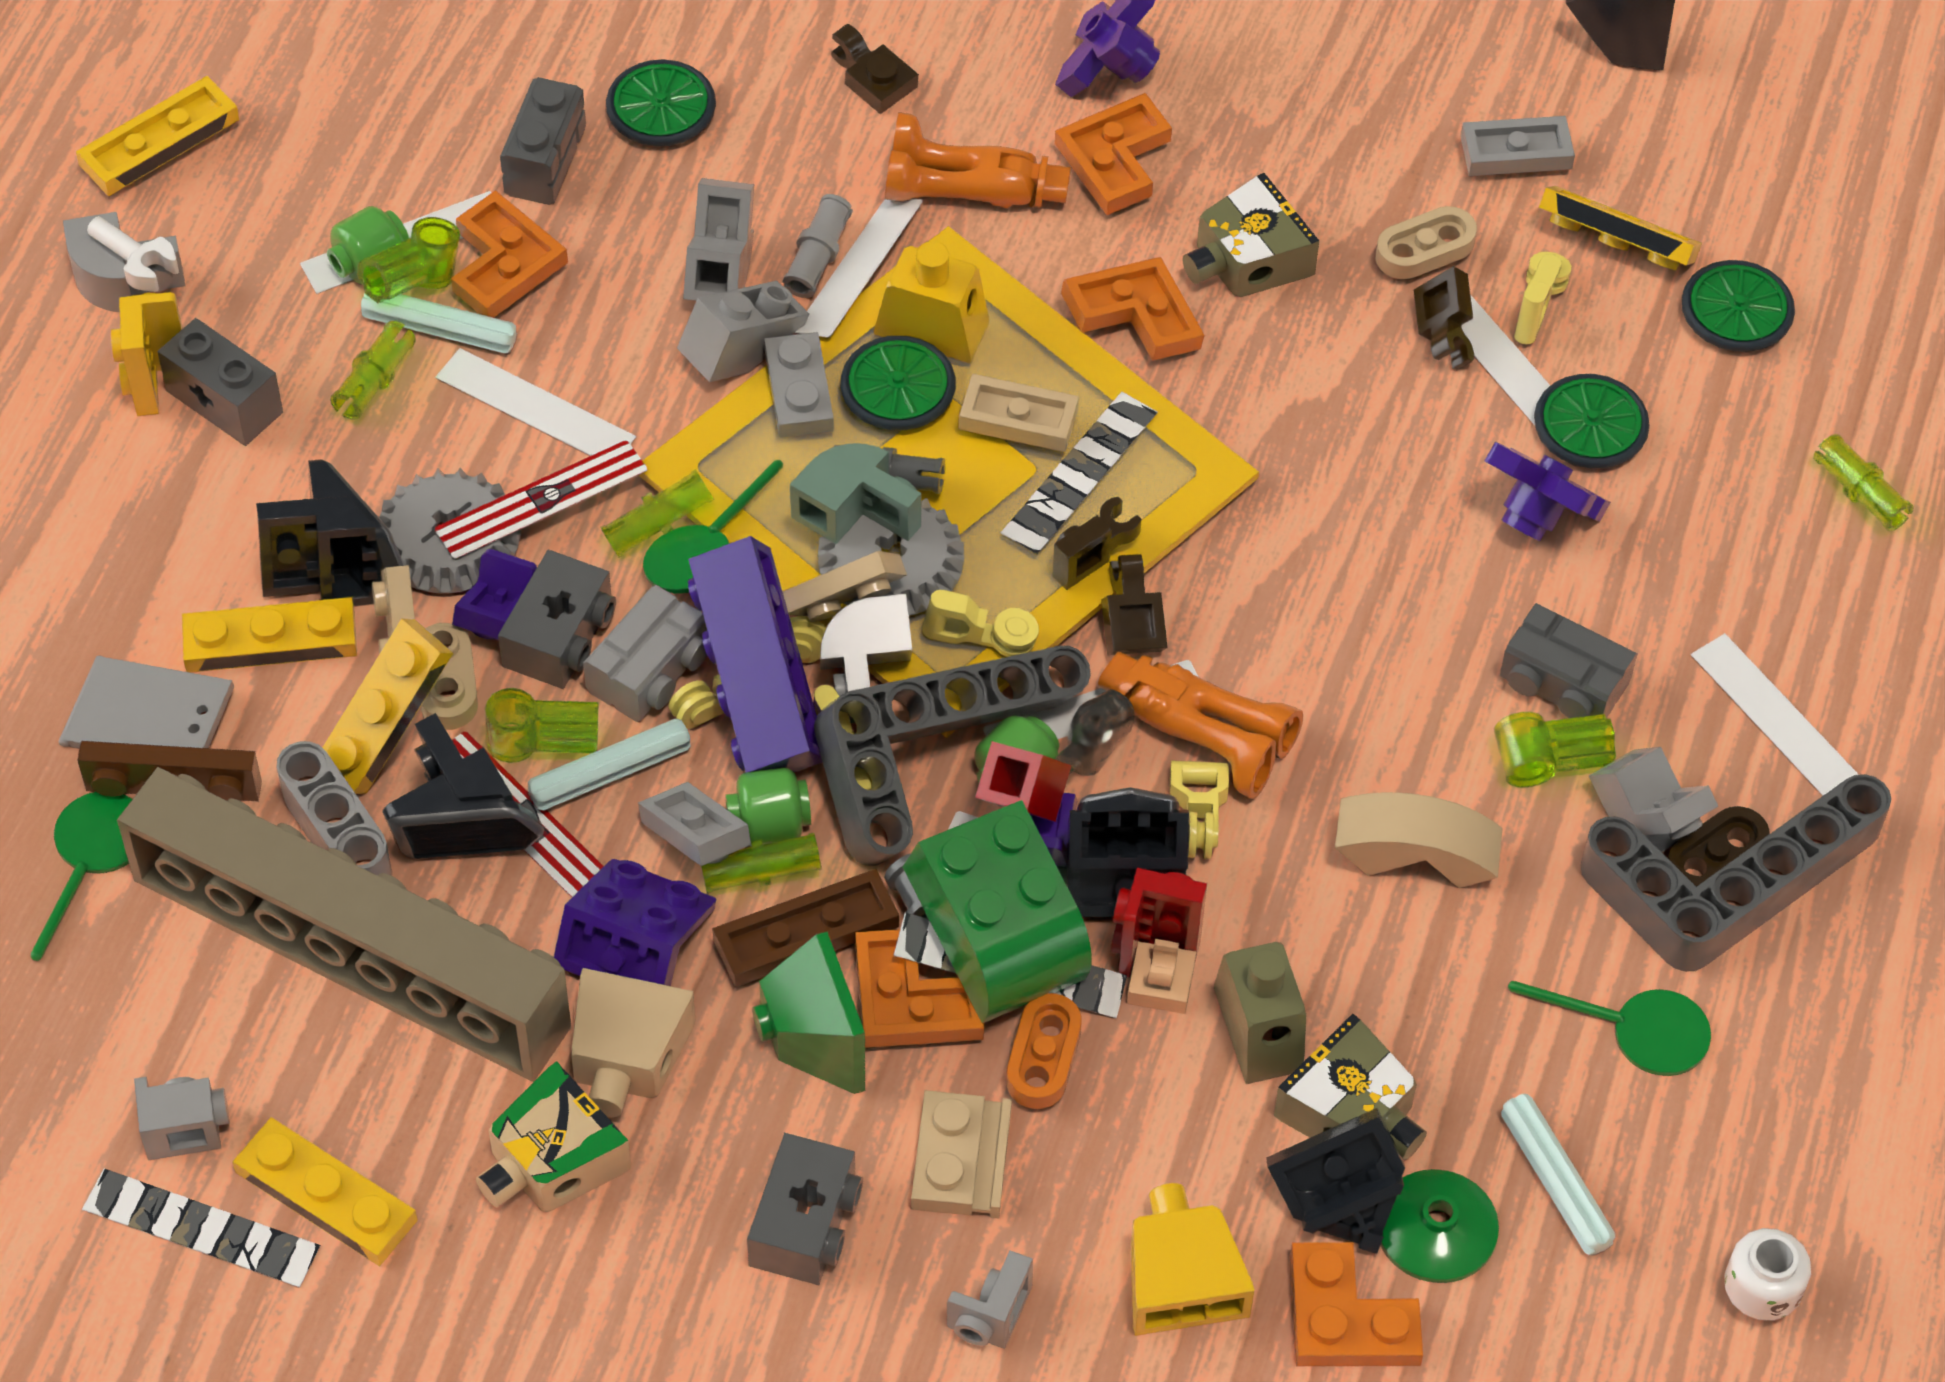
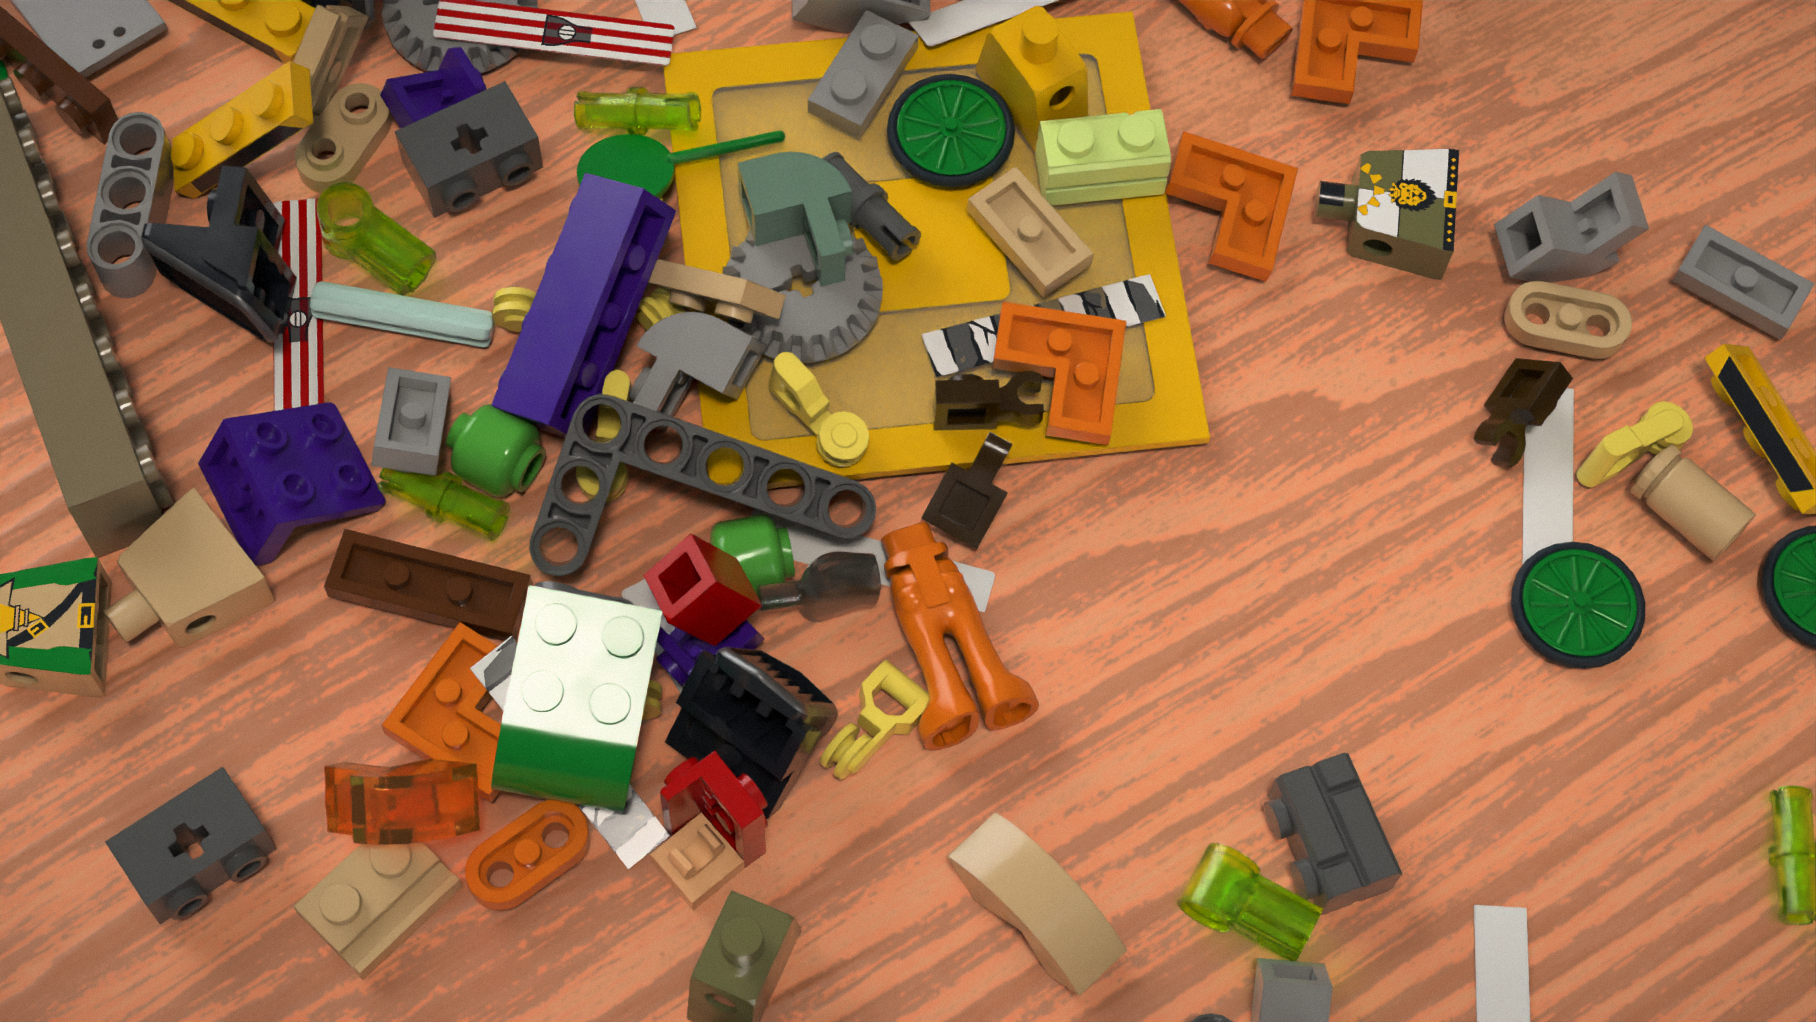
camera: 35 degrees right, 10 degrees up
(646, 654) = (508, 233): light grey brick -> none
(813, 1016) = (352, 673): green slope -> none
(928, 1071) = (402, 801): none -> clear orange brick
(1028, 328) = (1103, 157): none -> yellowish green brick
(1130, 469) = (1077, 352): none -> orange plate
(1385, 185) = (1572, 239): none -> light grey brick
(1541, 492) = (1456, 643): dark purple plant -> none
(1609, 305) = (1692, 502): none -> tan piece

